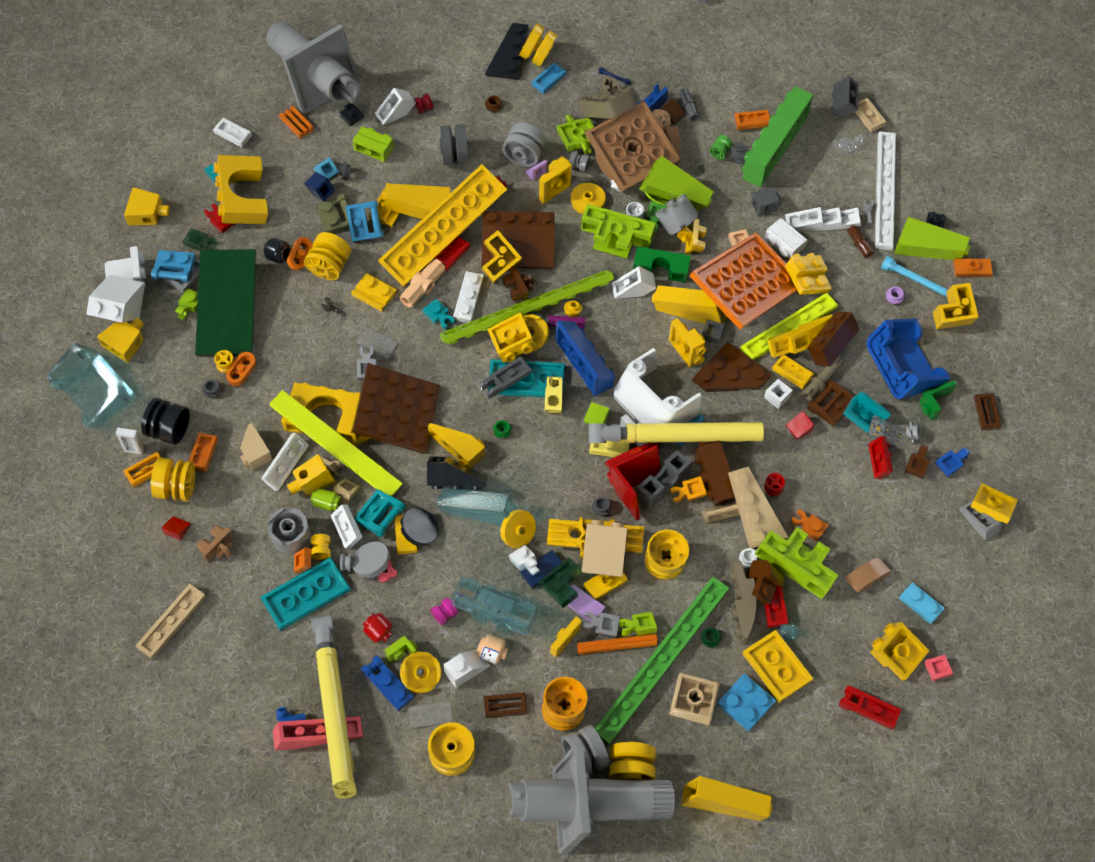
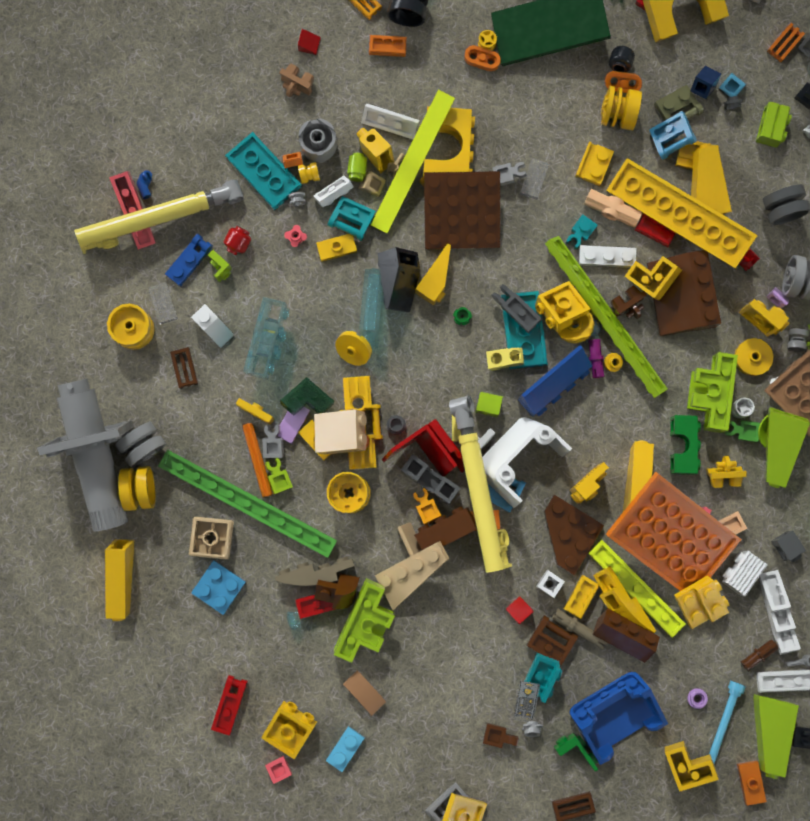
camera: 80 degrees right, 20 degrees up
(170, 621) = (217, 61): tan plate -> none
(173, 479) = (349, 25): yellow wheel -> none
(212, 388) = (456, 37): dark grey plate -> none
(254, 449) = (398, 90): tan slope -> none
(330, 307) = (569, 126): clear smoke hand -> none
(371, 559) = (302, 220): light grey tile -> none
(419, 526) = (342, 257): tile -> none
(430, 672) = (194, 292): yellow plate -> none
(444, 611) = (259, 292): dark pink wheel -> none
(492, 648) = (232, 346): light nougat head -> none
(524, 558) = (326, 359): white plate -> none
(545, 565) = (321, 378): dark blue tile -> none
(567, 693) = (176, 412): light orange wheel -> none
(634, 284) = (653, 420): white slope -> none
(677, 214) = (745, 452): light grey brick -> none
(711, 637) = (277, 546): dark green plate -> none
(713, 331) = (613, 508): dark grey plate -> none
(747, 556) = (365, 571): white plate -> none
(774, 479) = (449, 590): red wheel -> none
(777, 666) = (256, 613): yellow plate -> none
(812, 525) = (409, 633): orange plate -> none
(880, 457) = (496, 696): red plate -> none
(952, 462) = (504, 771): blue plate -> none

